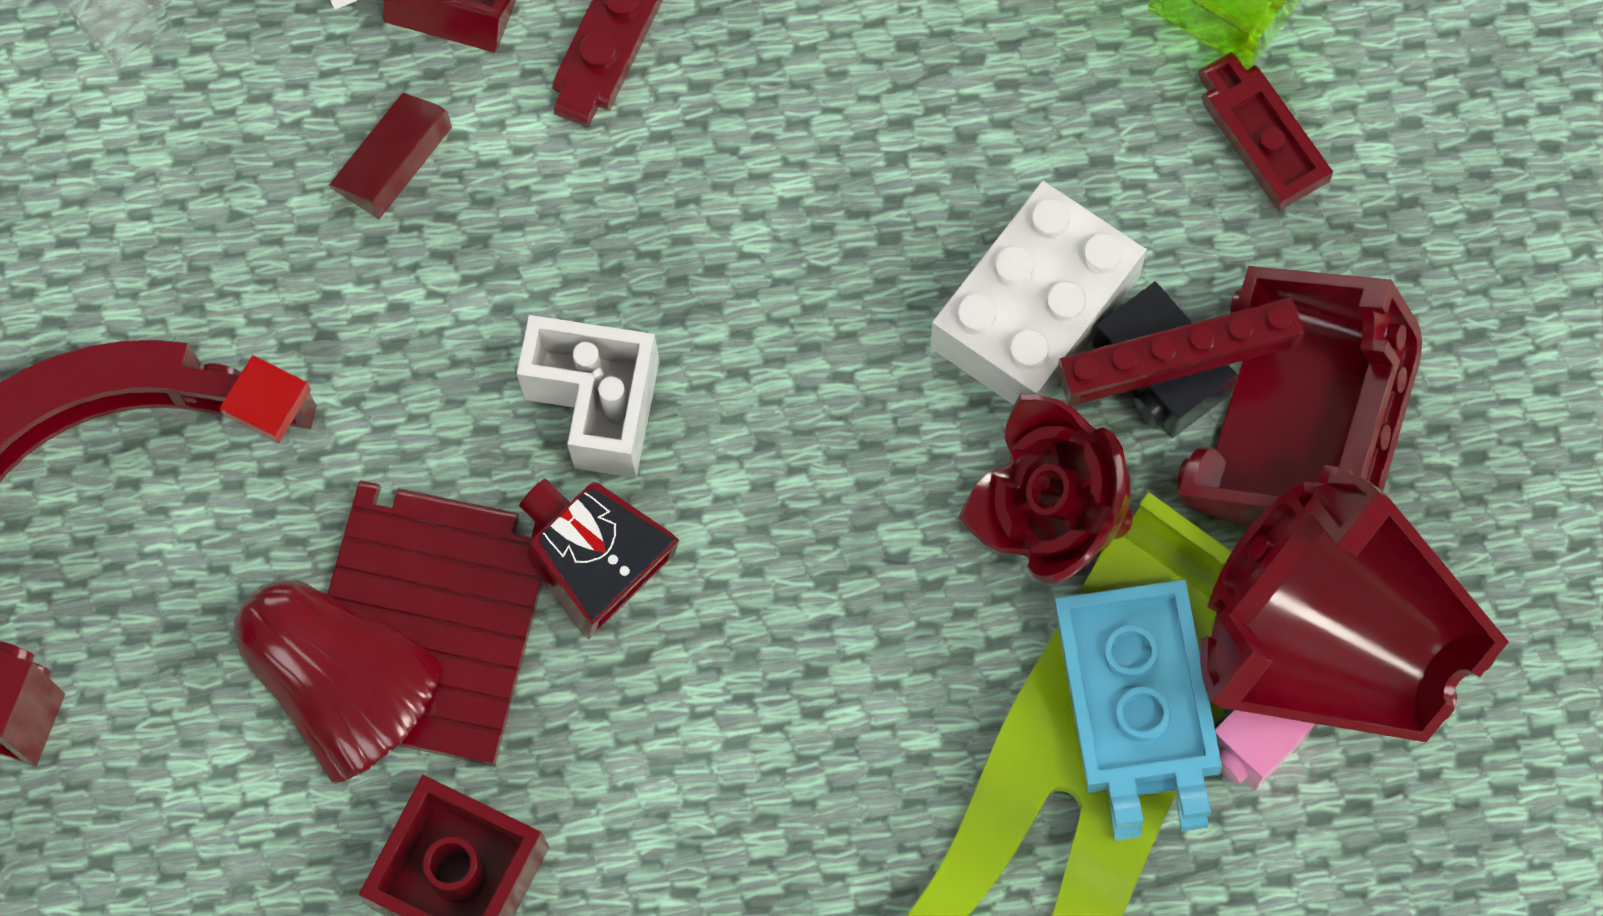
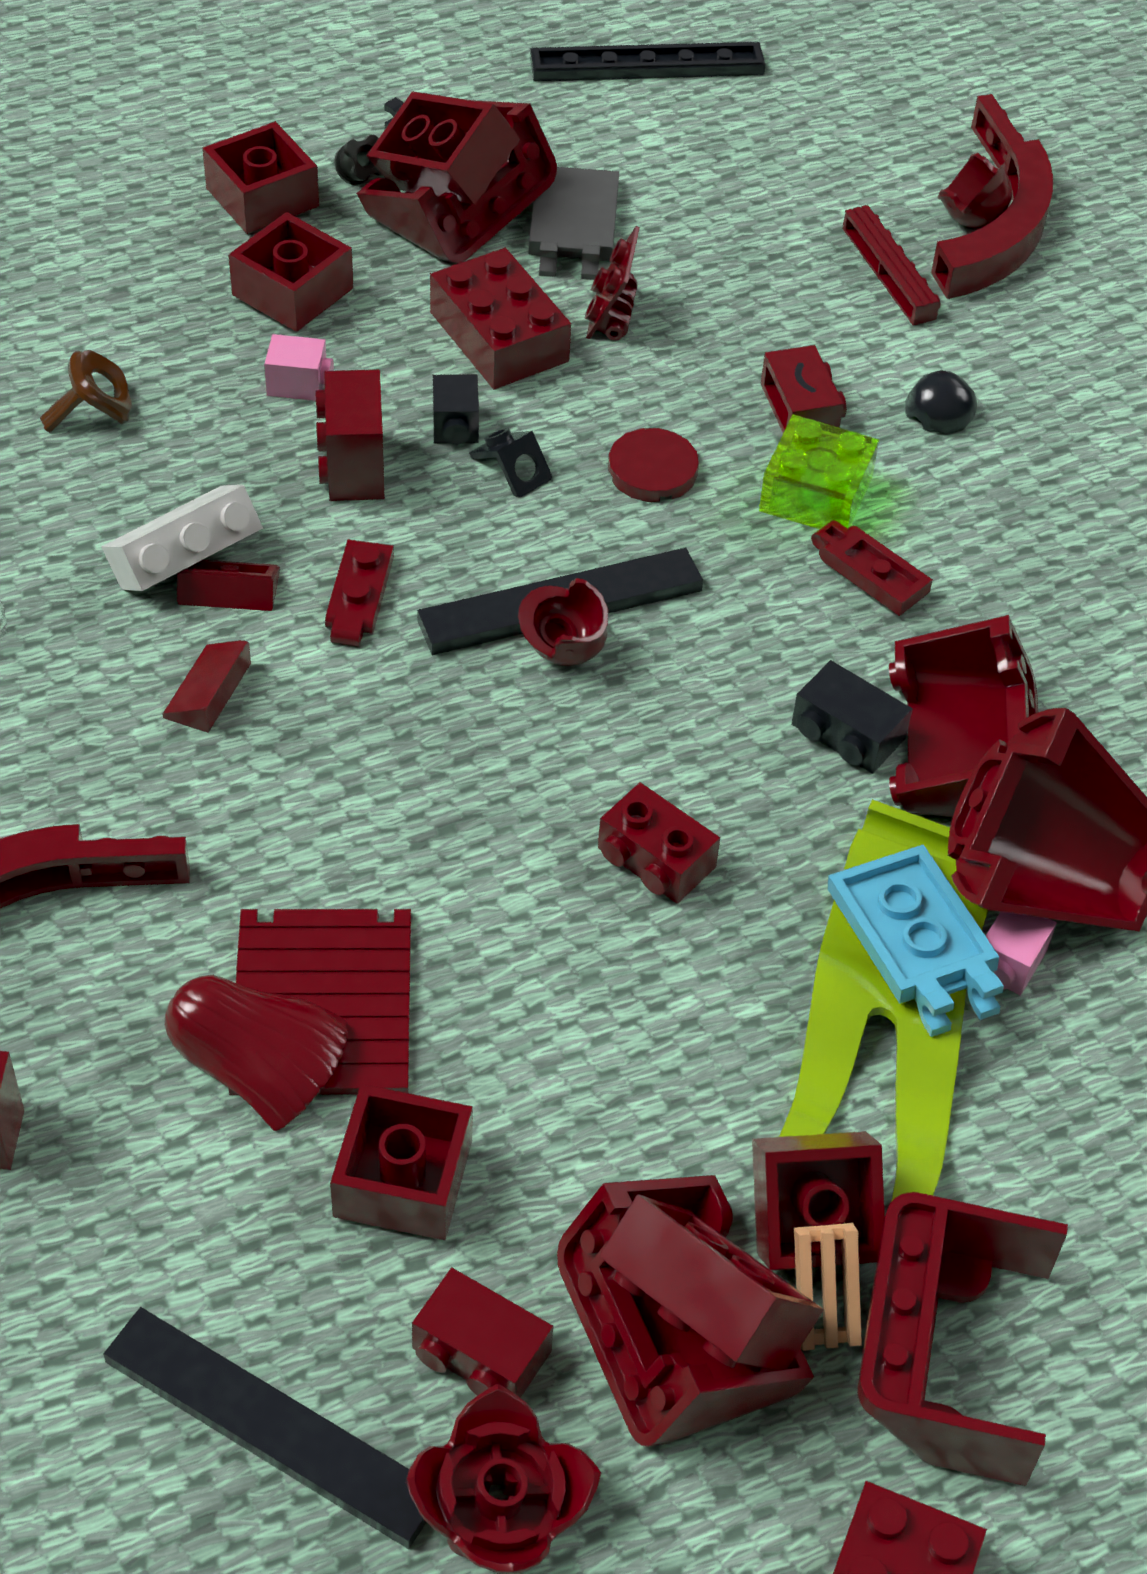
camera: 20 degrees left, 20 degrees down
(265, 399) = (156, 847): red tile -> none
(593, 550) = (451, 915): torso -> none
(603, 376) = (417, 793): white brick -> none
(835, 157) = (565, 623): none -> dark red helmet
(853, 107) = (496, 613): none -> black tile
(868, 497) = (658, 843): none -> dark red brick
(1037, 295) = (743, 692): white brick -> none
(1056, 495) = (787, 780): dark red brick -> none
(1180, 351) = (866, 696): dark red piece -> none

